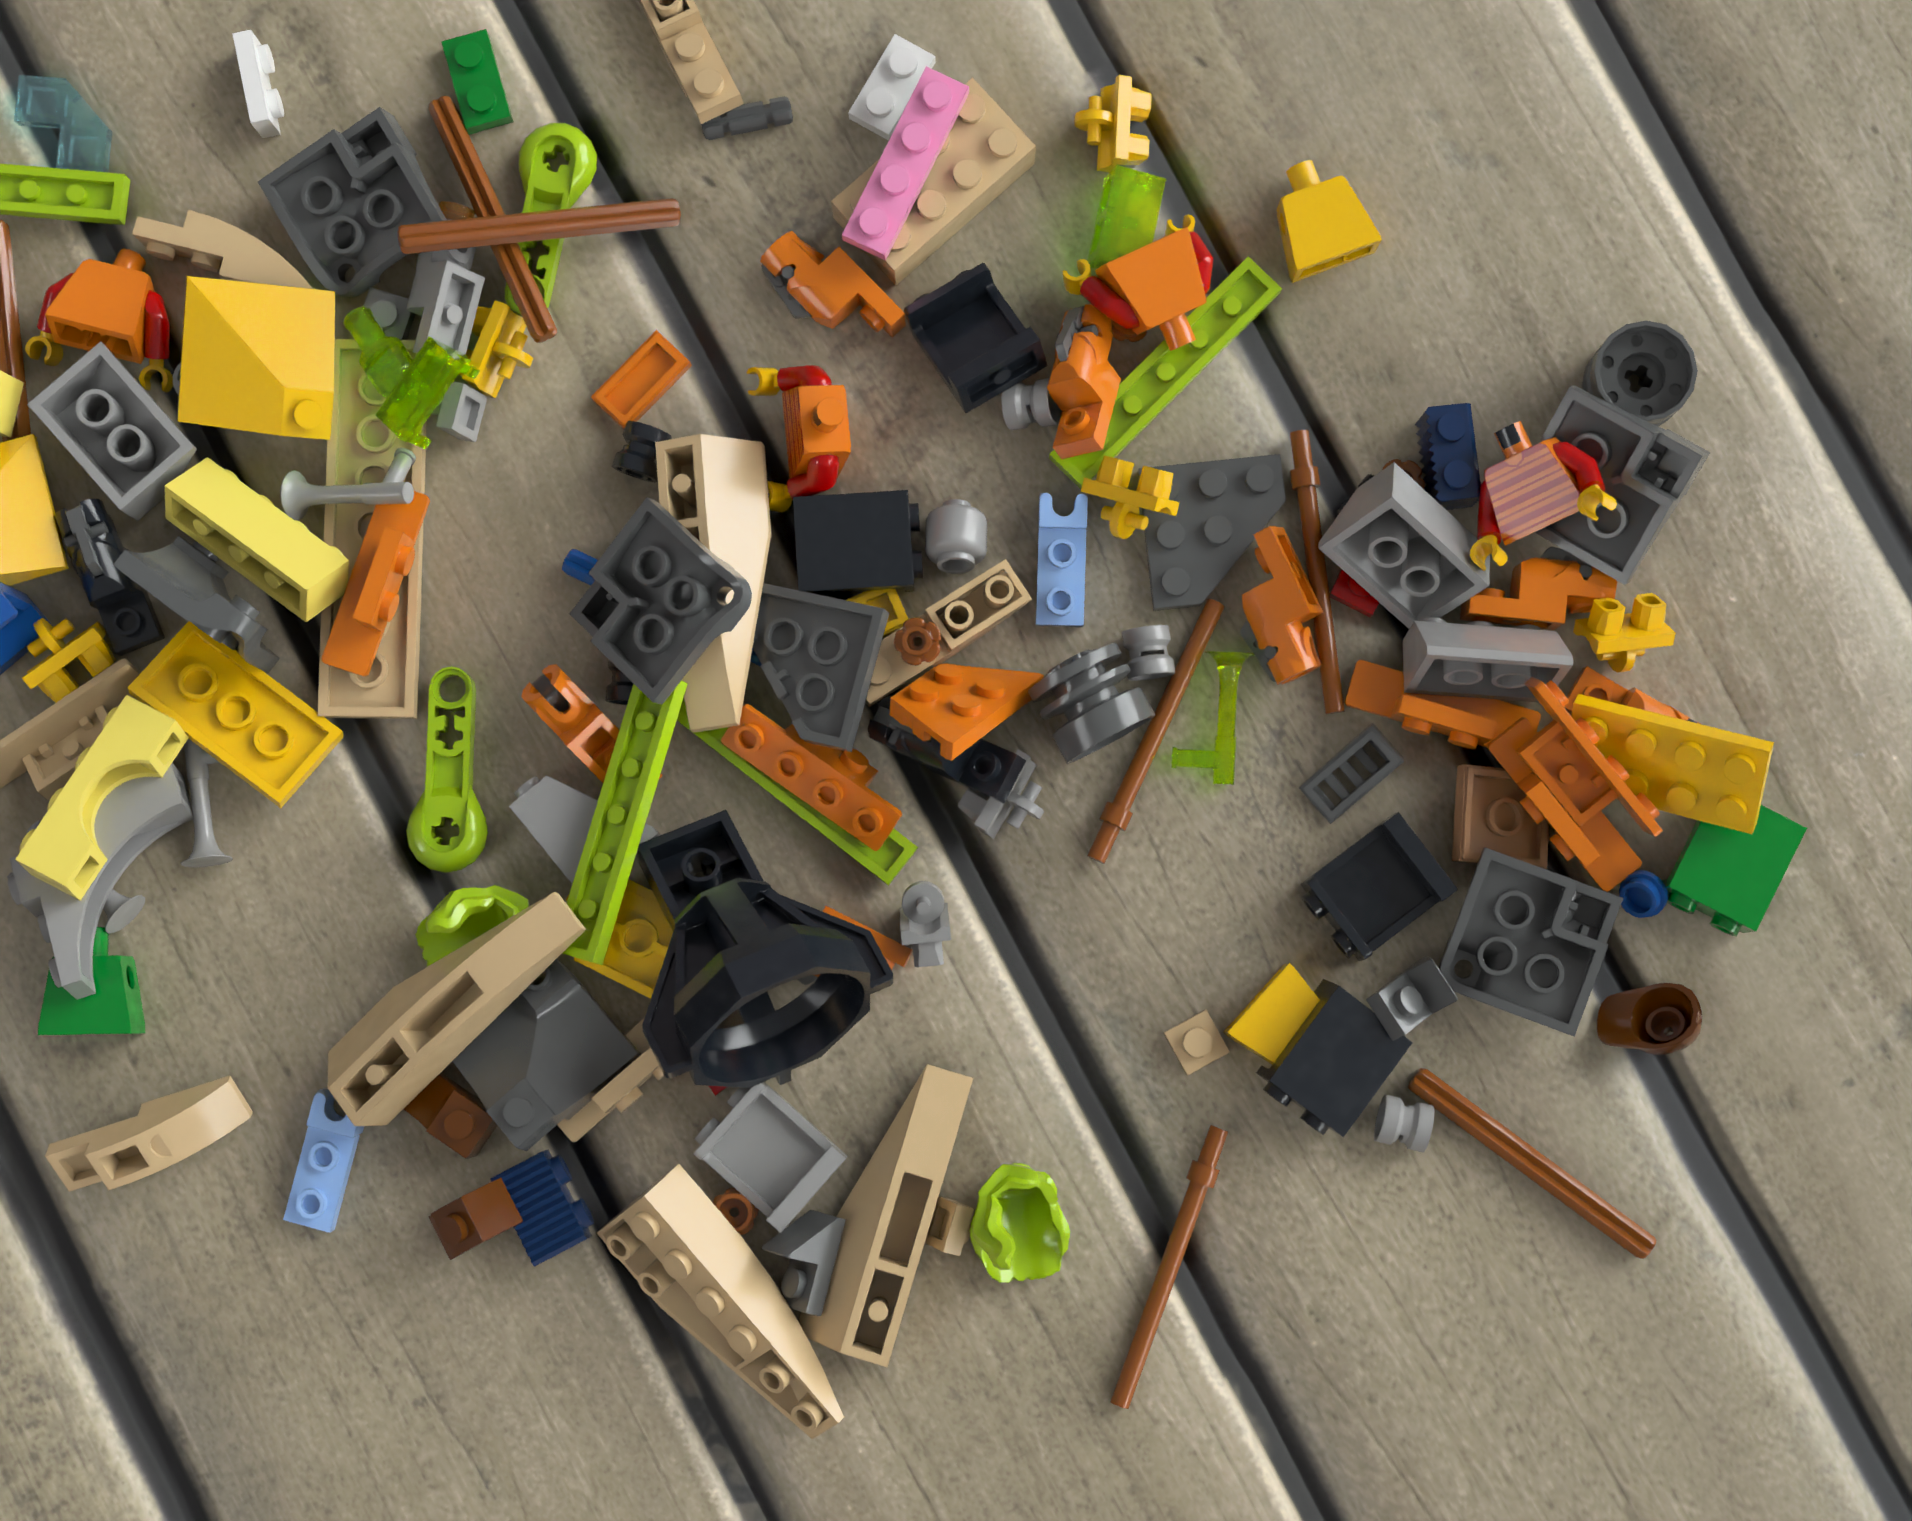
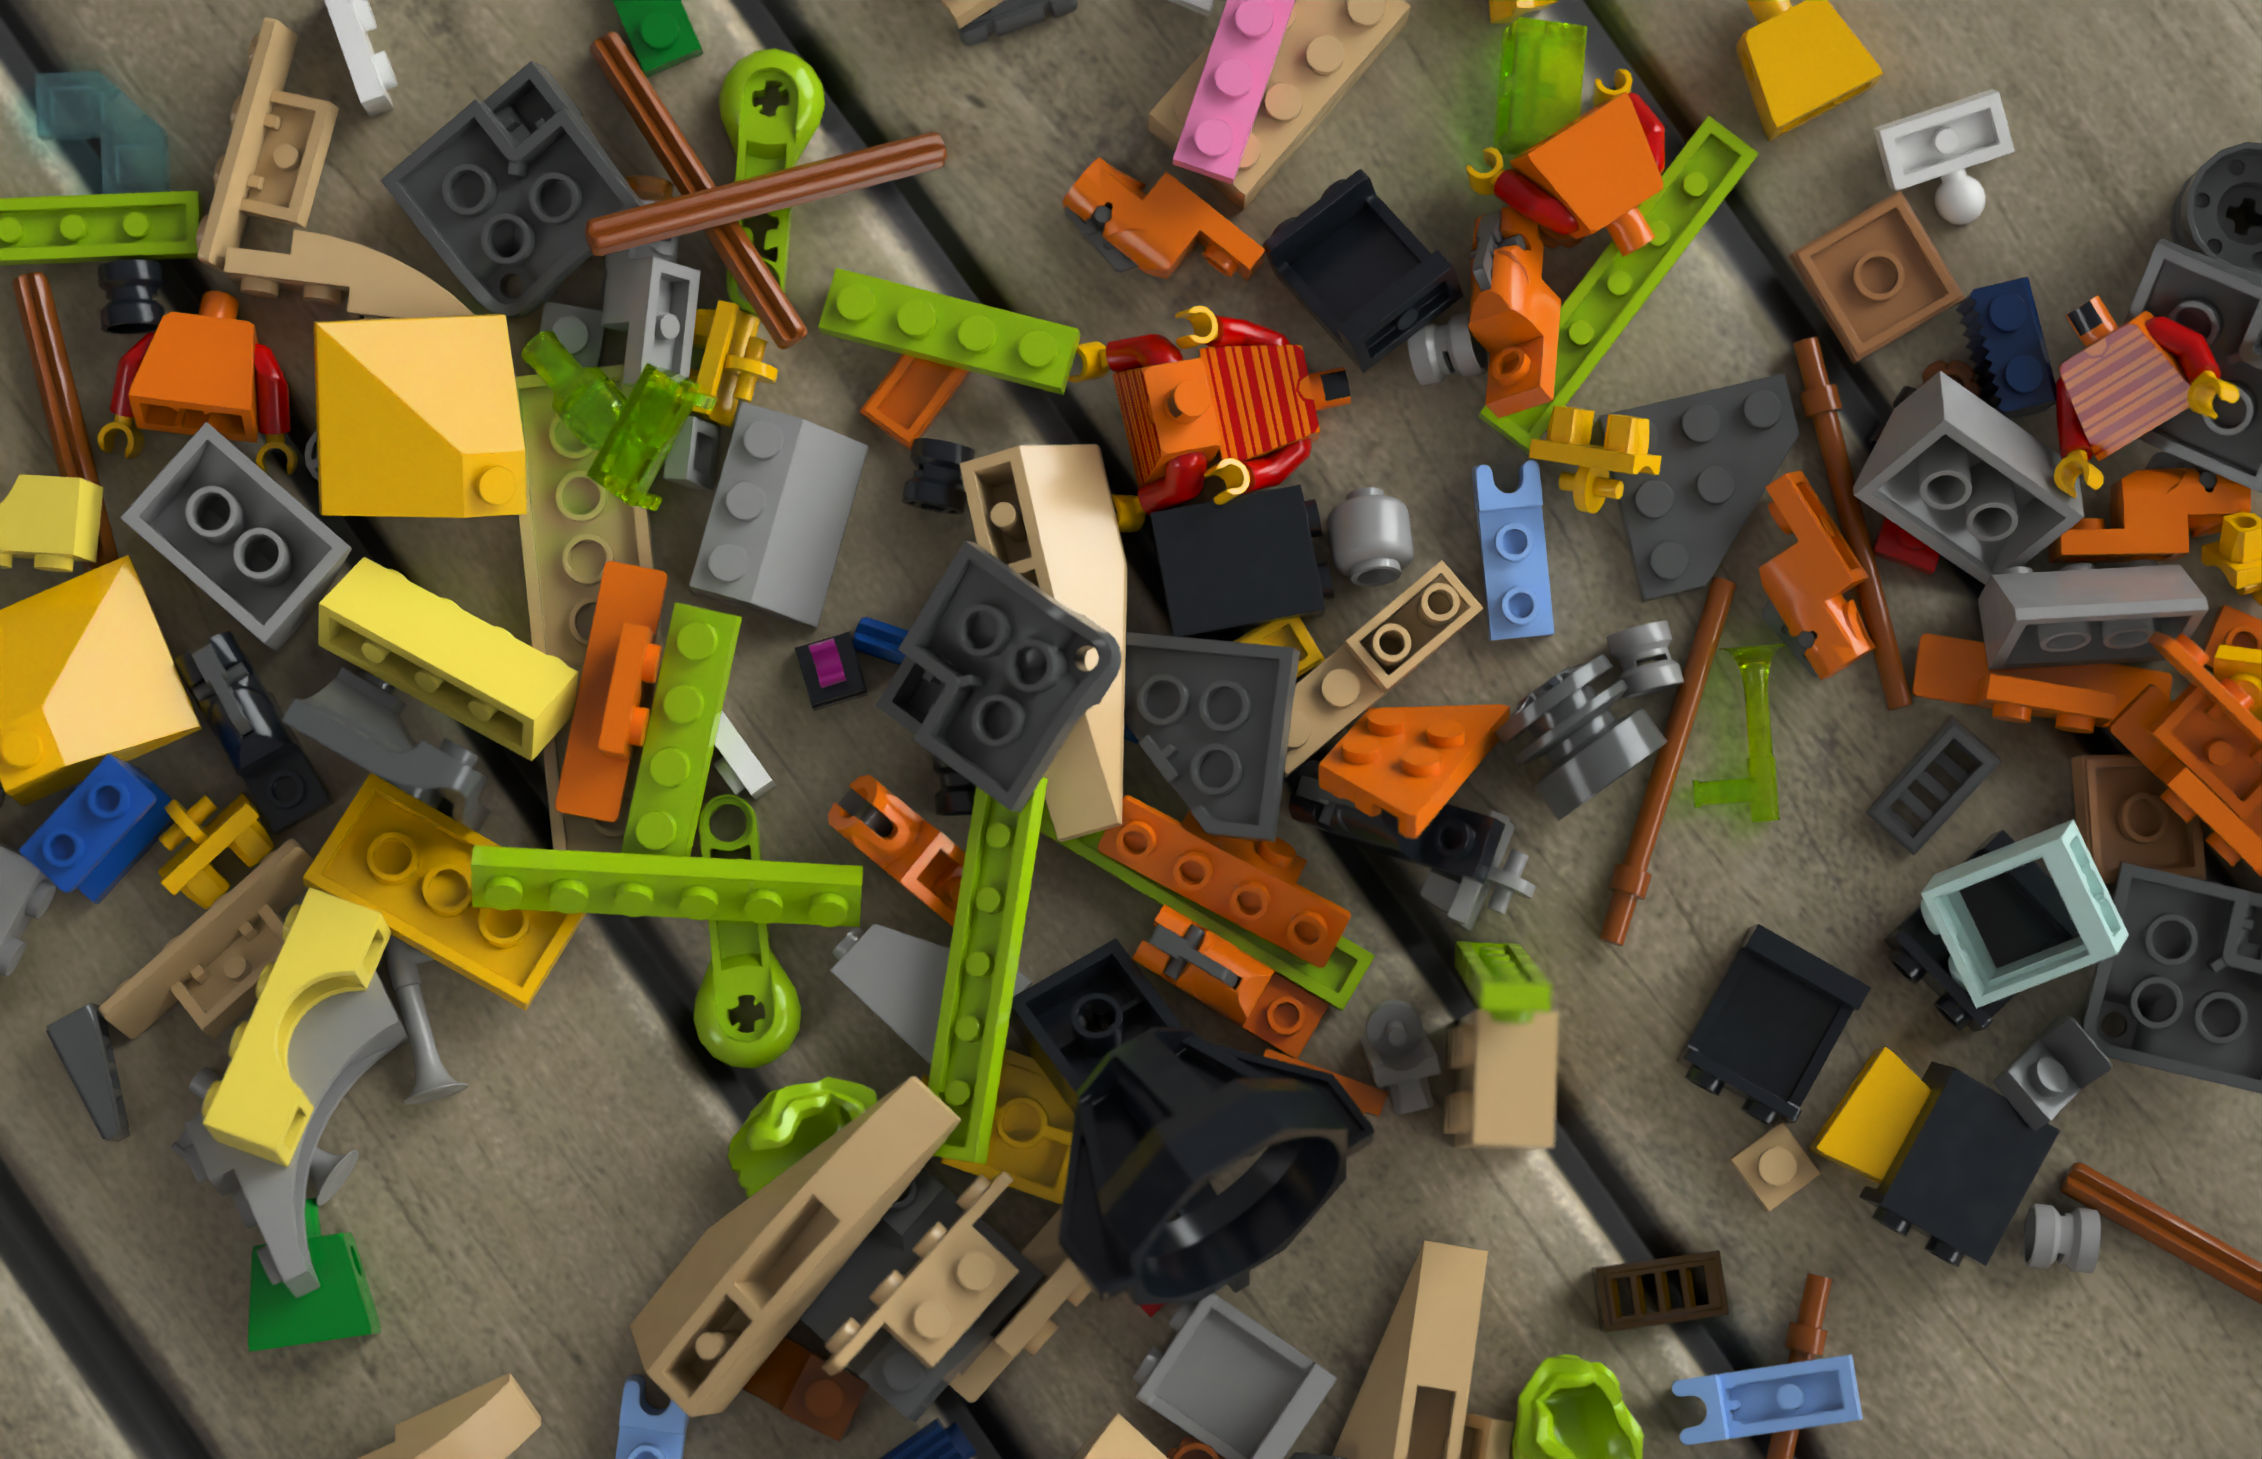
camera: 10 degrees left, 0 degrees up
(65, 243) = (130, 289): none -> black wheel
(181, 151) = (272, 150): none -> tan bracket
(299, 495) = (494, 591): light grey piece -> none
(395, 728) = (666, 886): none -> lime plate
(421, 617) = (681, 732): none -> lime plate
(447, 610) = (739, 764): none -> white plate
(518, 466) = (778, 516): none -> light grey slope
(543, 586) = (831, 671): none -> black piece
(554, 1057) = (940, 1292): none -> tan bracket
(664, 345) = (949, 331): none -> lime plate
(807, 853) = (1230, 982): none -> orange plate
(885, 424) = (1259, 399): none -> torso
(927, 650) = (1355, 697): dark orange plate -> none
(997, 950) = (1502, 1082): none -> tan brick
(1001, 876) = (1503, 980): none -> lime plate
(1058, 1124) = (1608, 1297): none -> dark brown slope
(1170, 1216) = (1773, 1399): none -> light blue plate
(1207, 937) = (1770, 1026): none -> black panel
(1358, 391) = (1877, 277): none -> medium nougat plate
(1420, 300) = (1943, 145): none -> white plate
(1450, 862) = (2080, 887): none -> light aqua window

